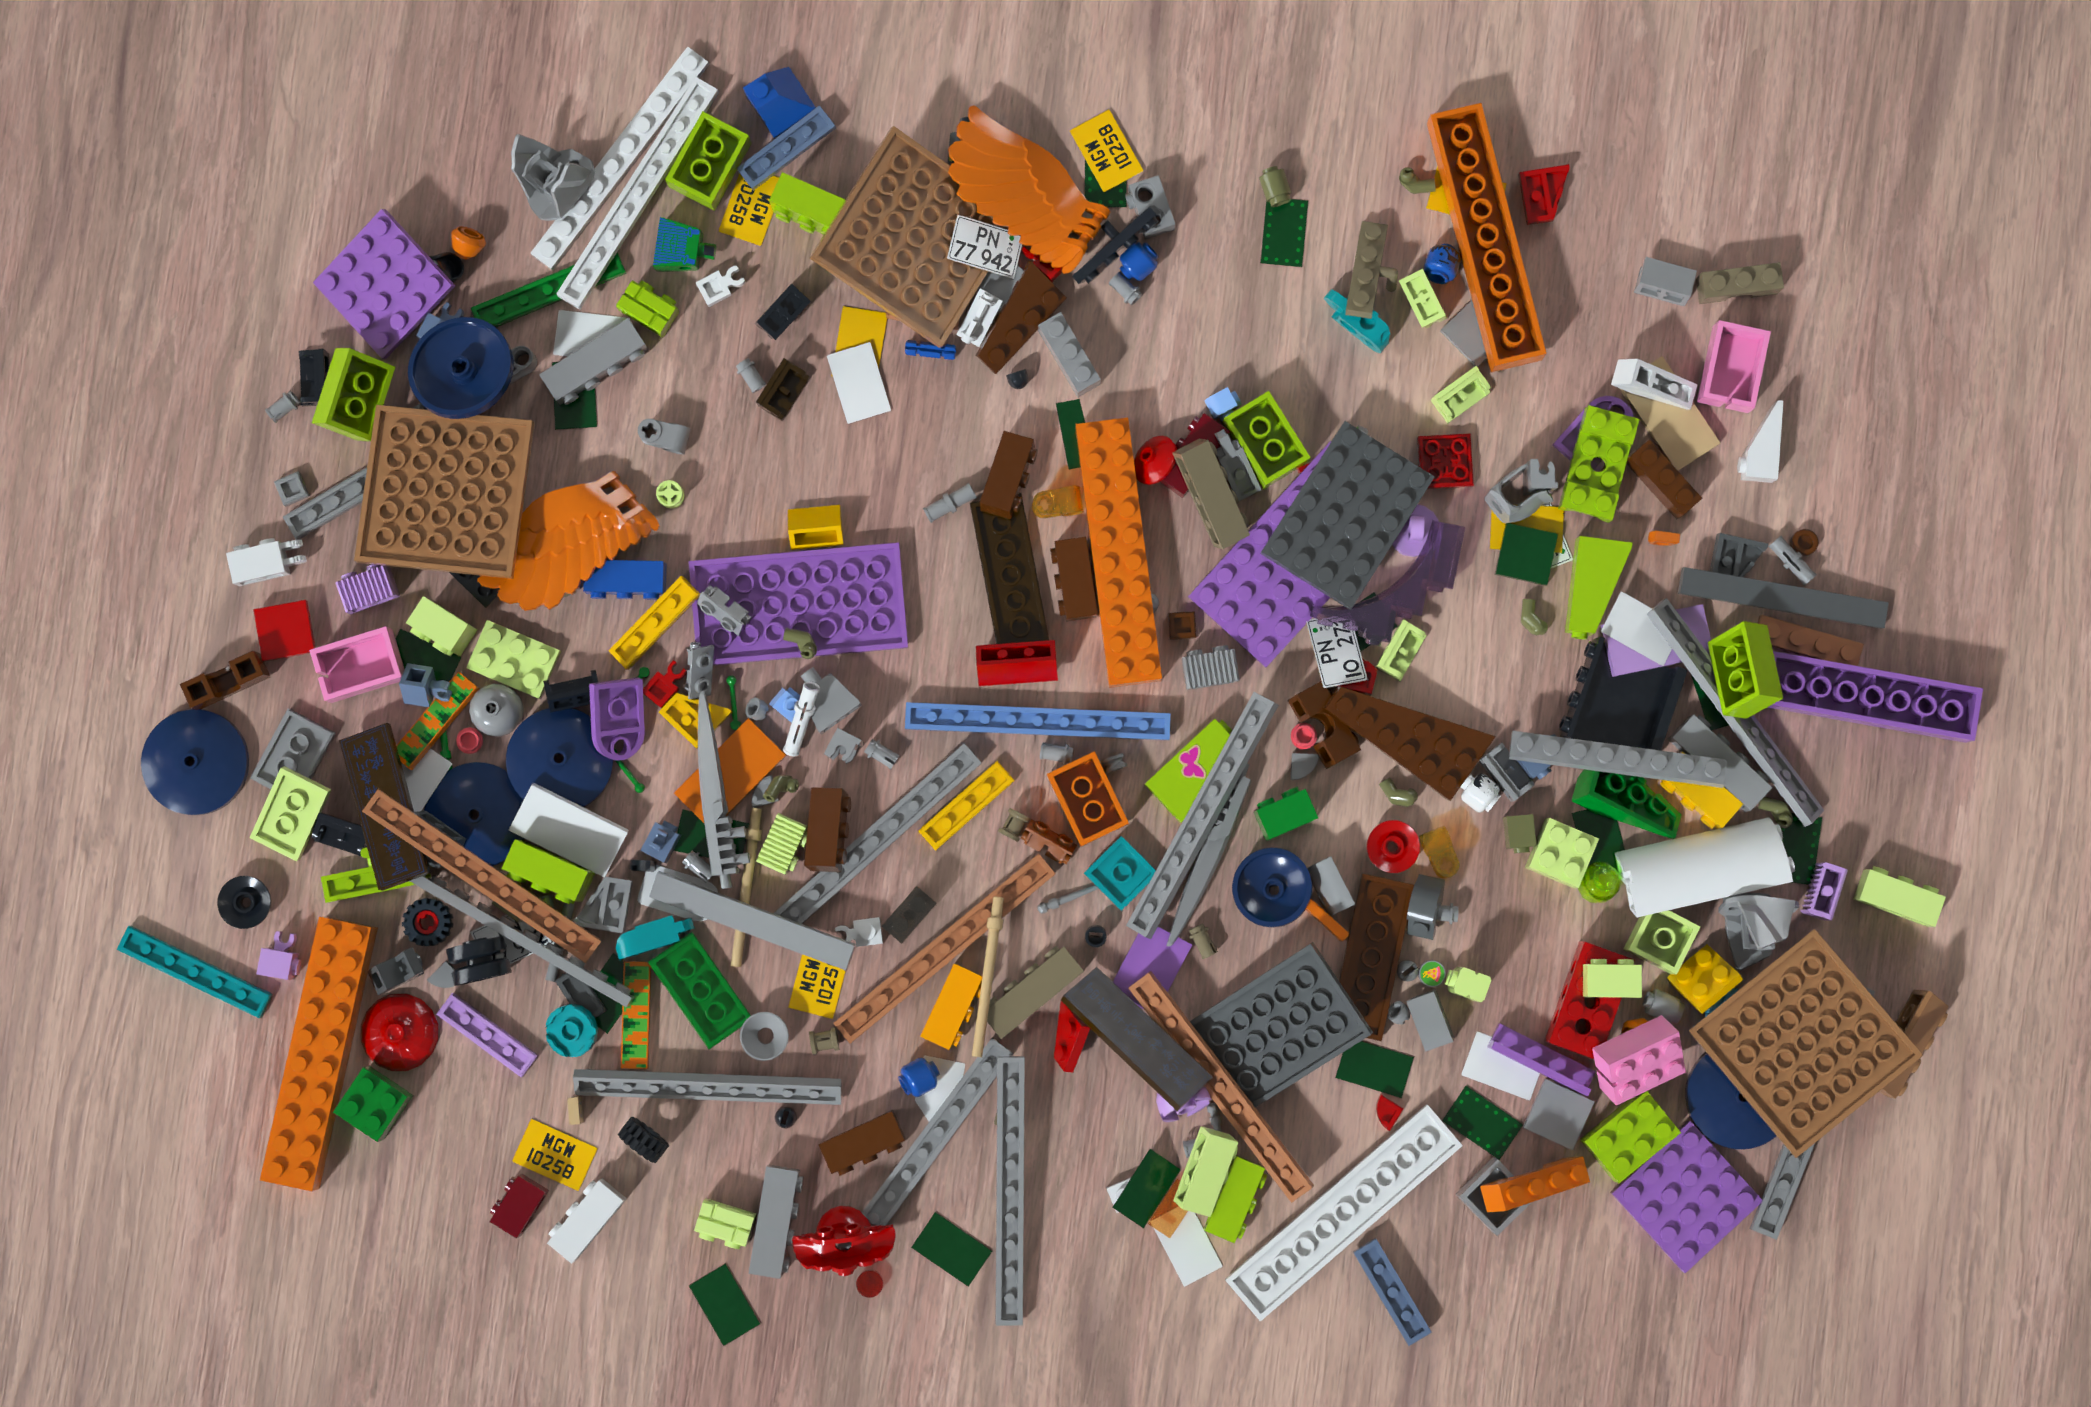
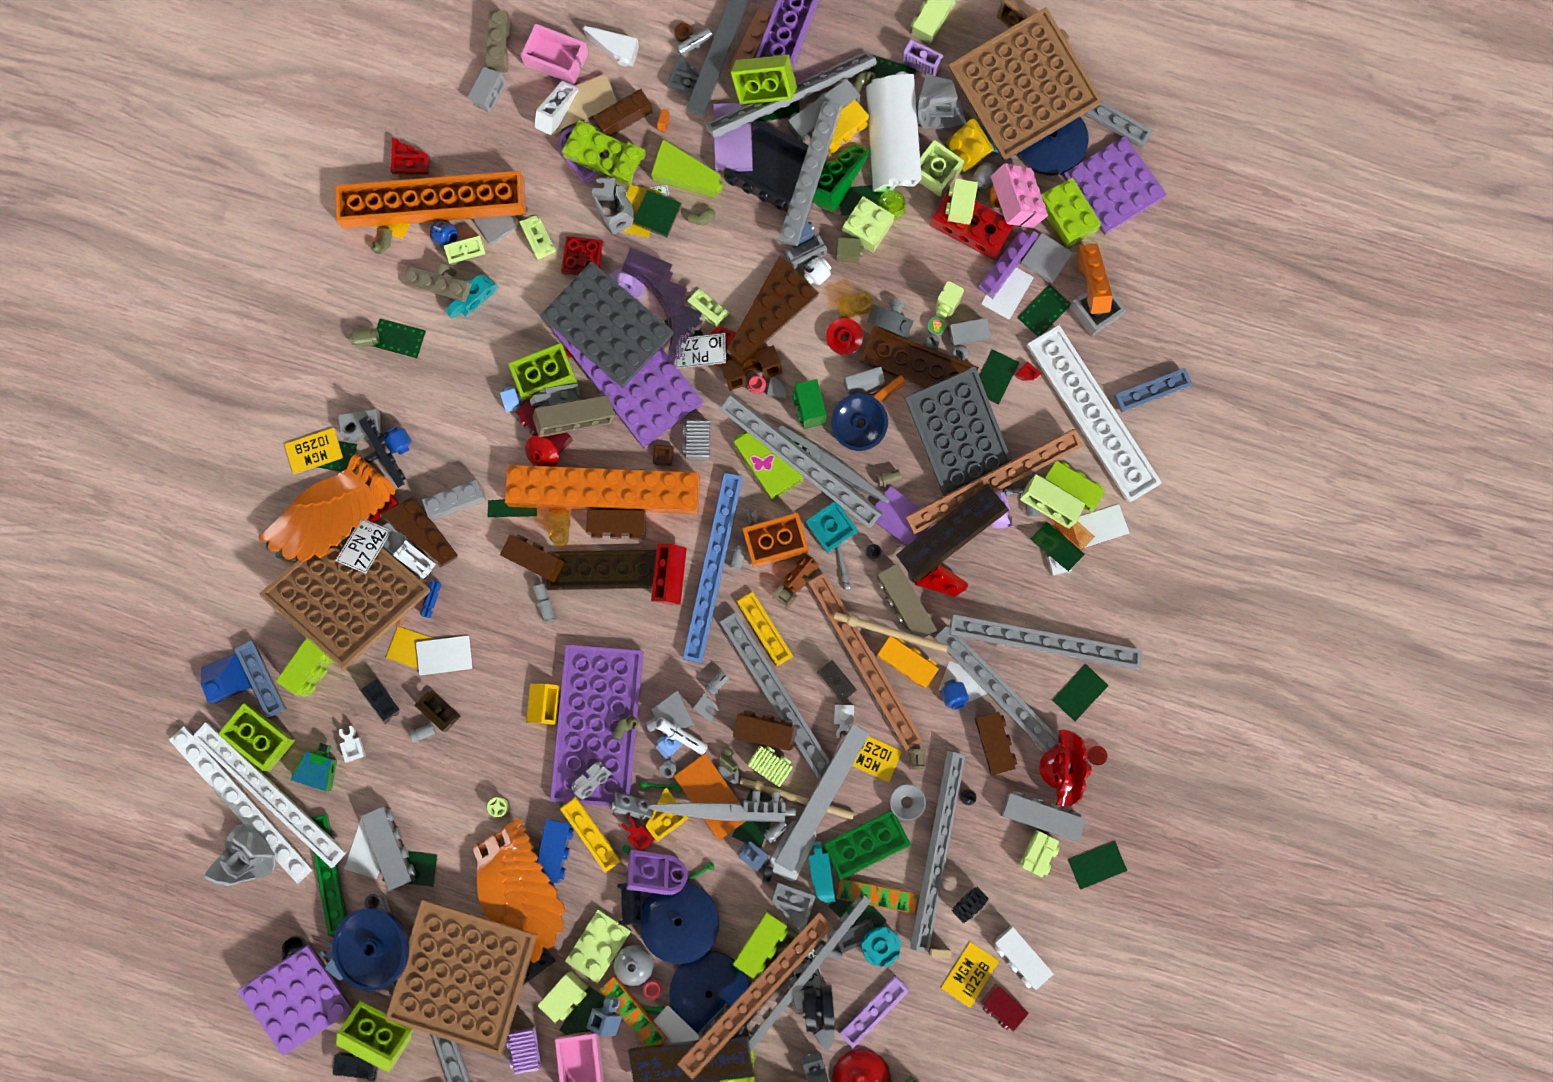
camera: 80 degrees left, 5 degrees down
(435, 934) = (792, 1039): black bush -> none
(467, 242) = (278, 930): orange cone -> none
(568, 830) = (732, 924): white tile -> none
(648, 308) = (356, 800): lime brick -> none
(669, 436) = (455, 802): light grey piece -> none
(749, 211) = (301, 714): yellow sticker -> none
(1018, 379) = (465, 540): black hinge -> none
(1129, 292) = (415, 453): light grey pin -> none
(1398, 796) = (810, 327): olive arm -> none
(1634, 628) = (721, 149): white sticker -> none

